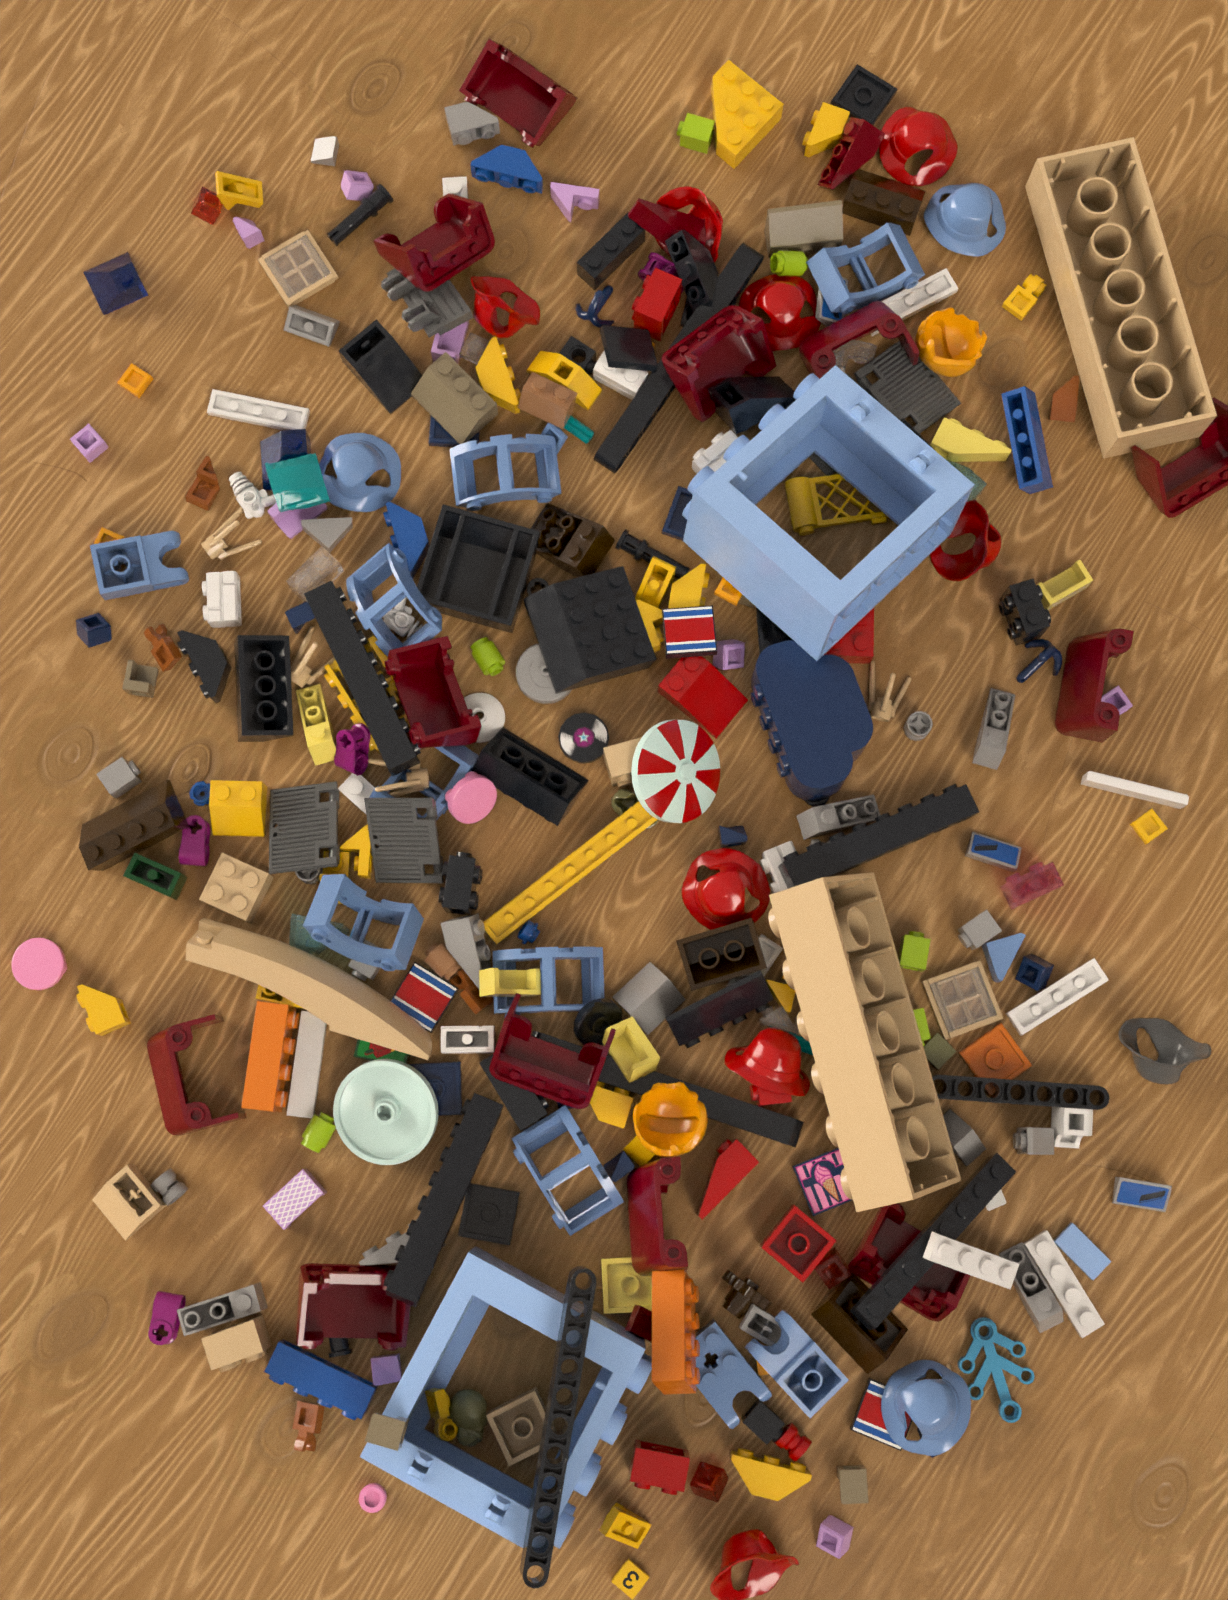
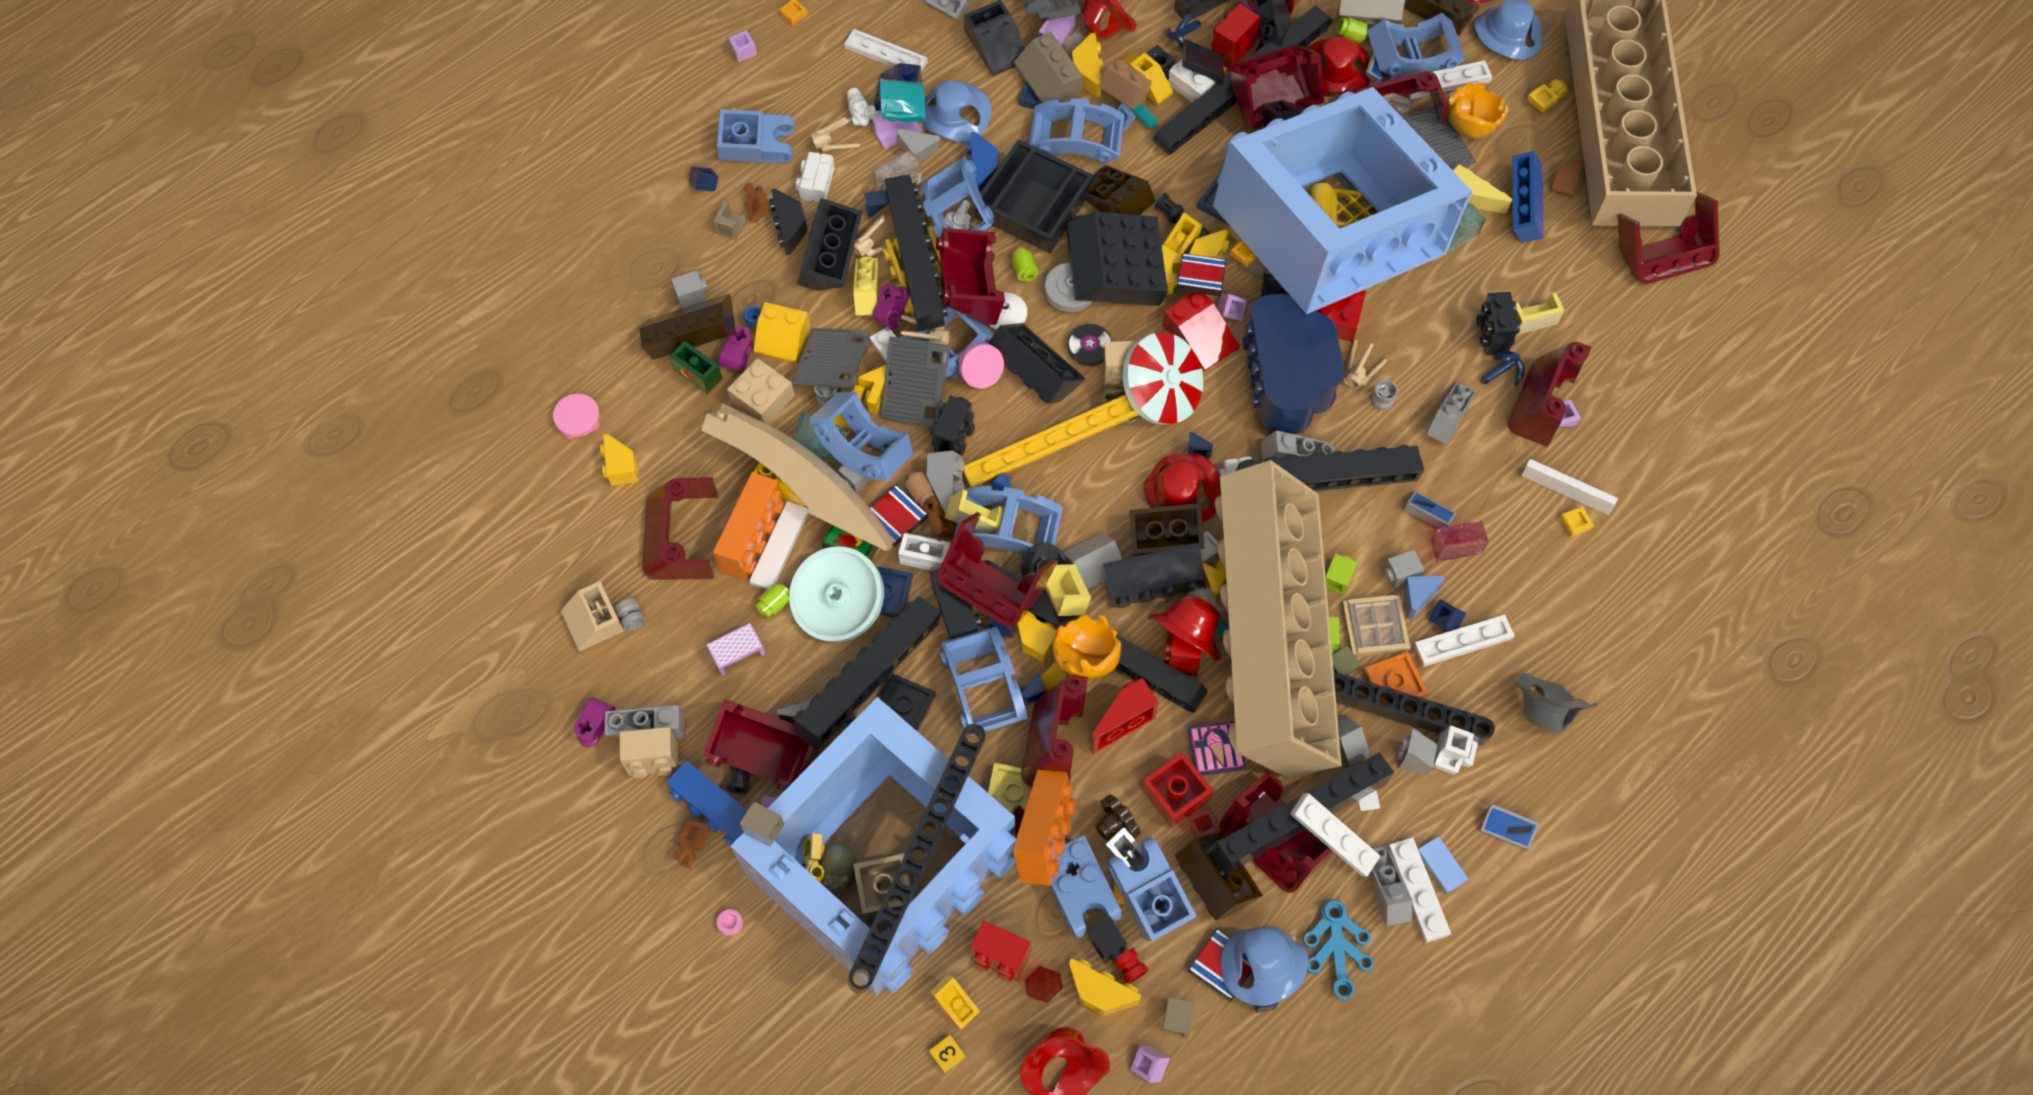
camera: 15 degrees right, 15 degrees down
(205, 486) = (826, 97): dark orange slope -> none
(985, 550) = (1463, 246): red piece -> none

